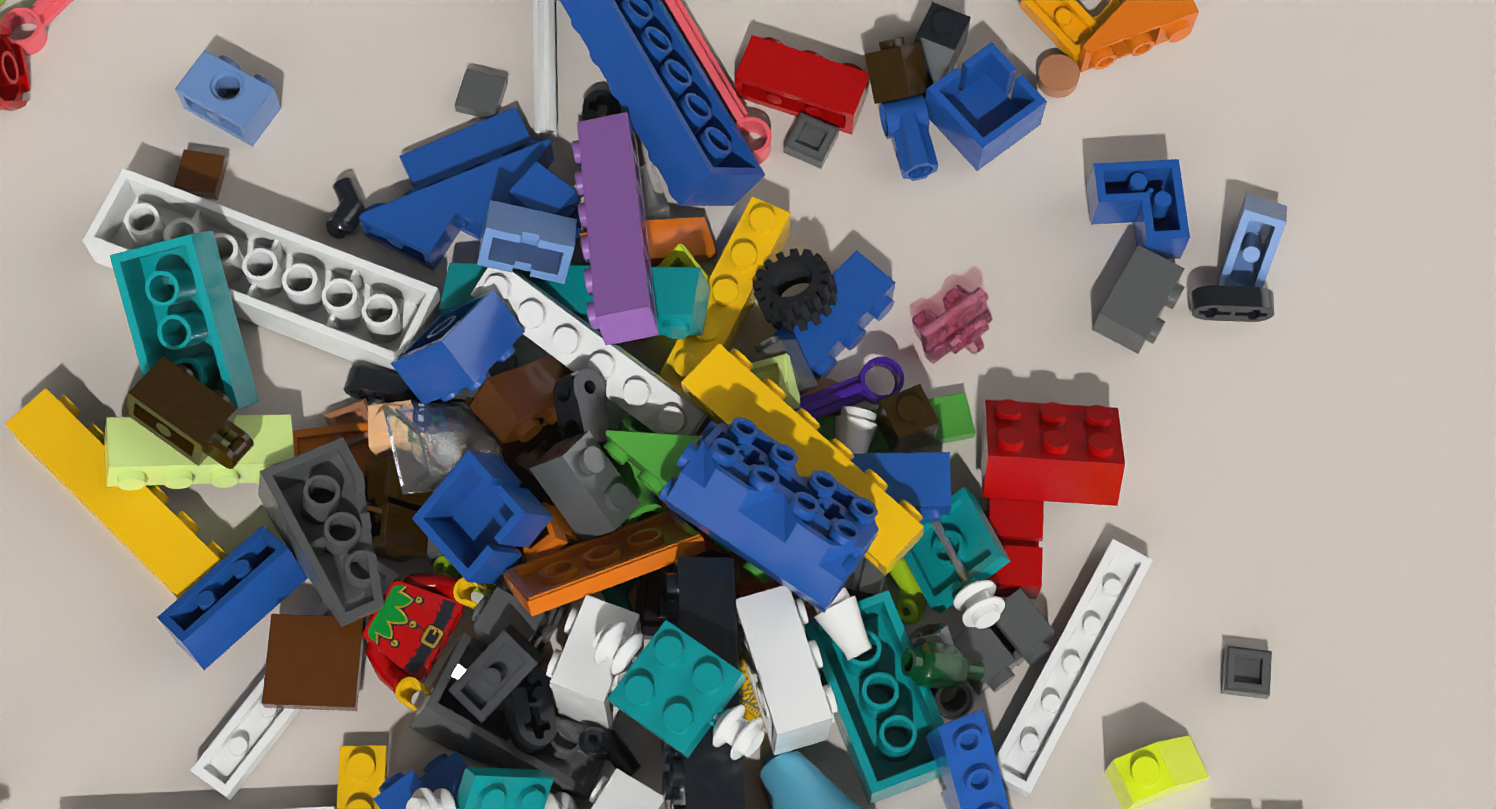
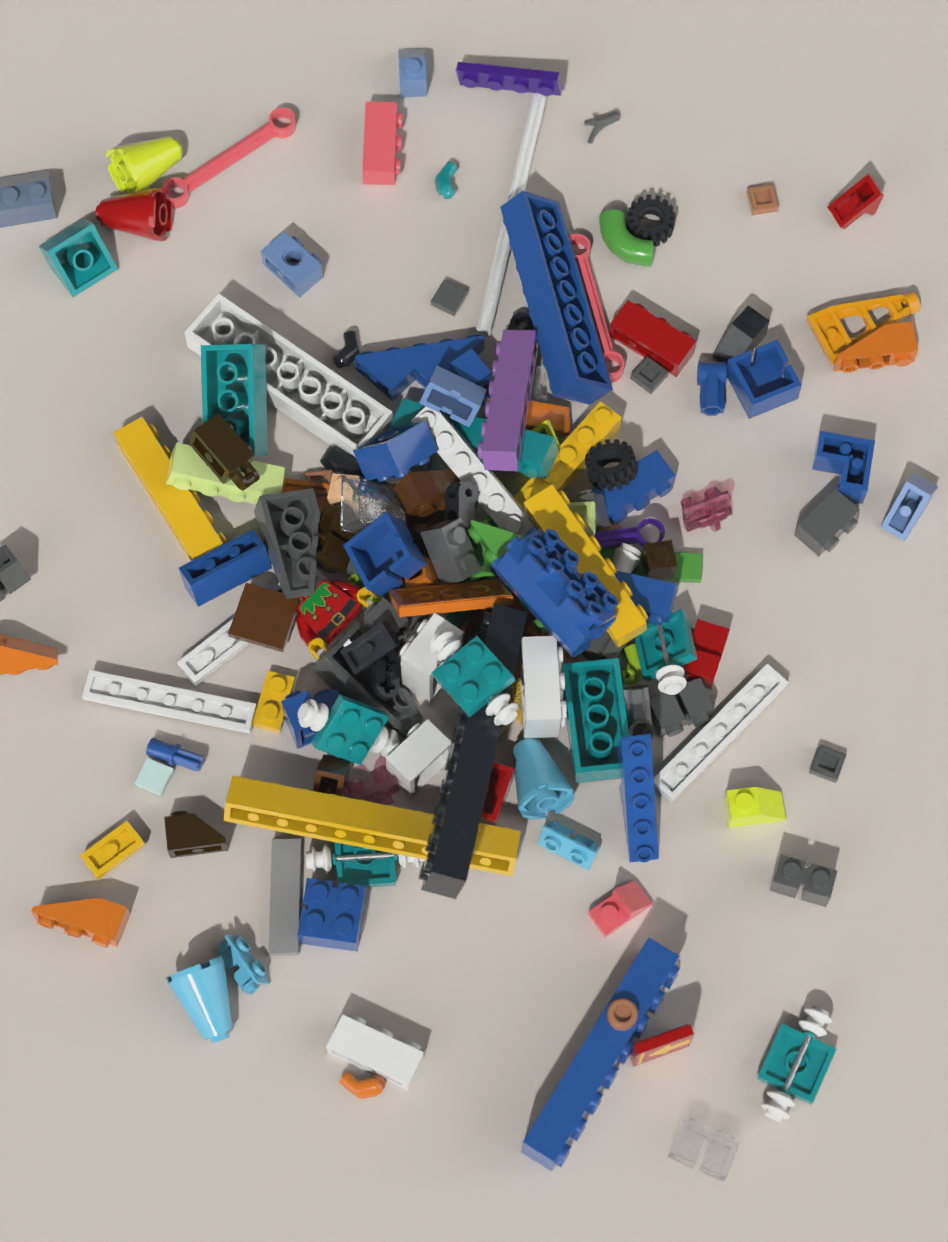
camera: 15 degrees right, 0 degrees up
(201, 173) = (264, 307): reddish brown tile -> none
(466, 148) = (431, 330): blue tile -> none
(608, 746) = (426, 709): black arm -> none
(845, 625) = (585, 670): white cone -> none
(896, 70) = (713, 343): dark brown brick -> none
(939, 666) = (636, 709): dark green plant -> none
(1051, 452) = (742, 601): red brick -> none
(1058, 75) = (818, 370): nougat tile -> none
(1232, 303) = (886, 539): black beam -> none

